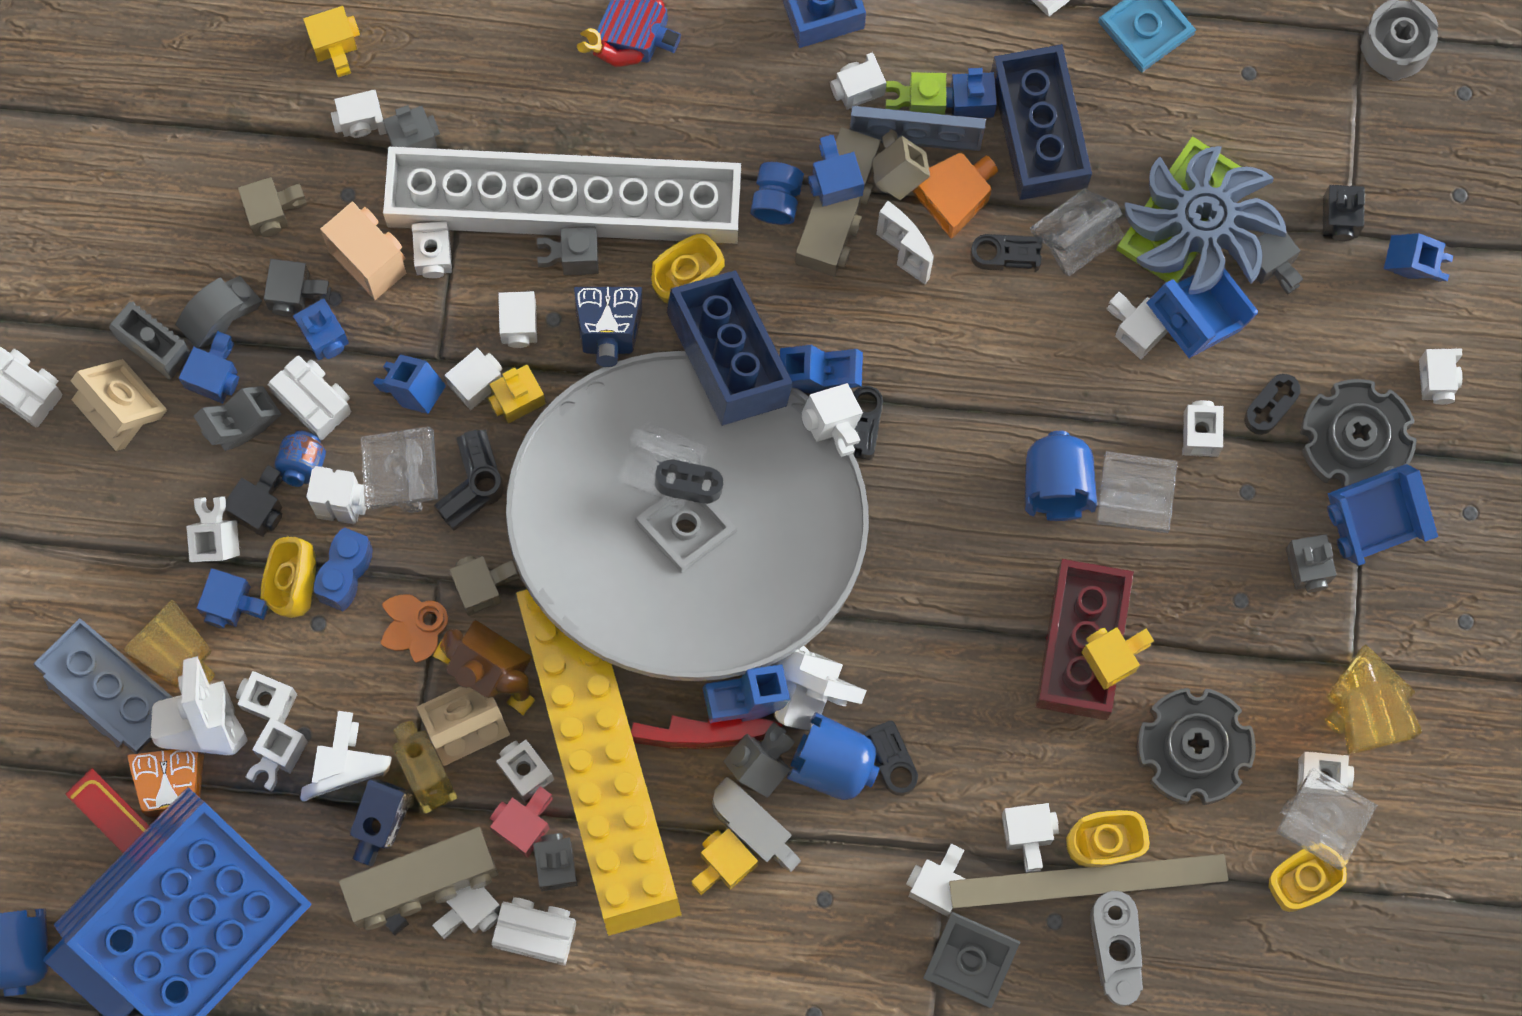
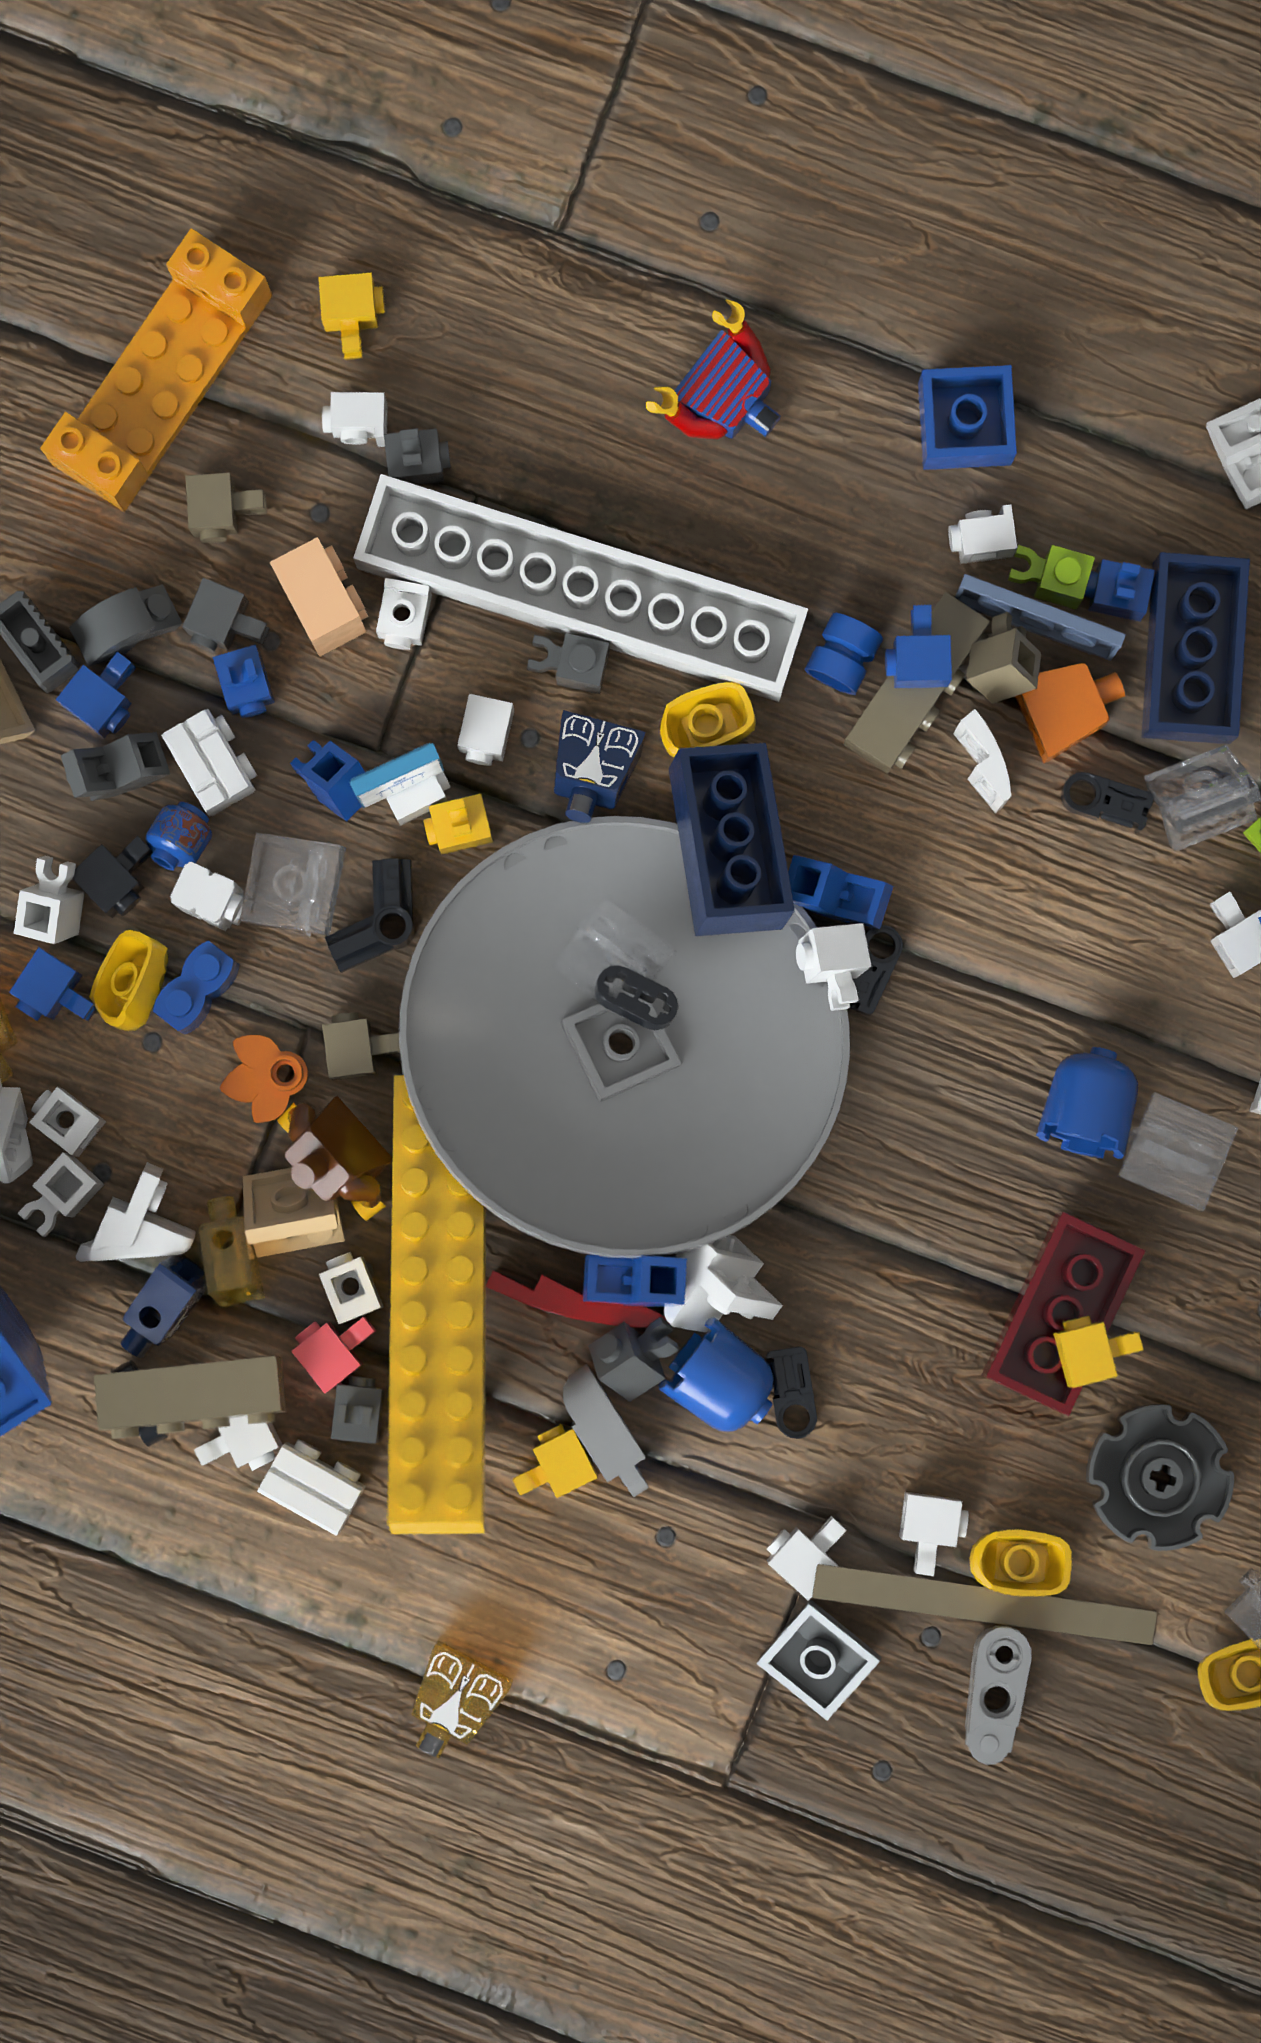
camera: 20 degrees right, 10 degrees up
(199, 120) = (160, 372): none -> light orange plate
(459, 360) = (396, 775): none -> dark azure tile

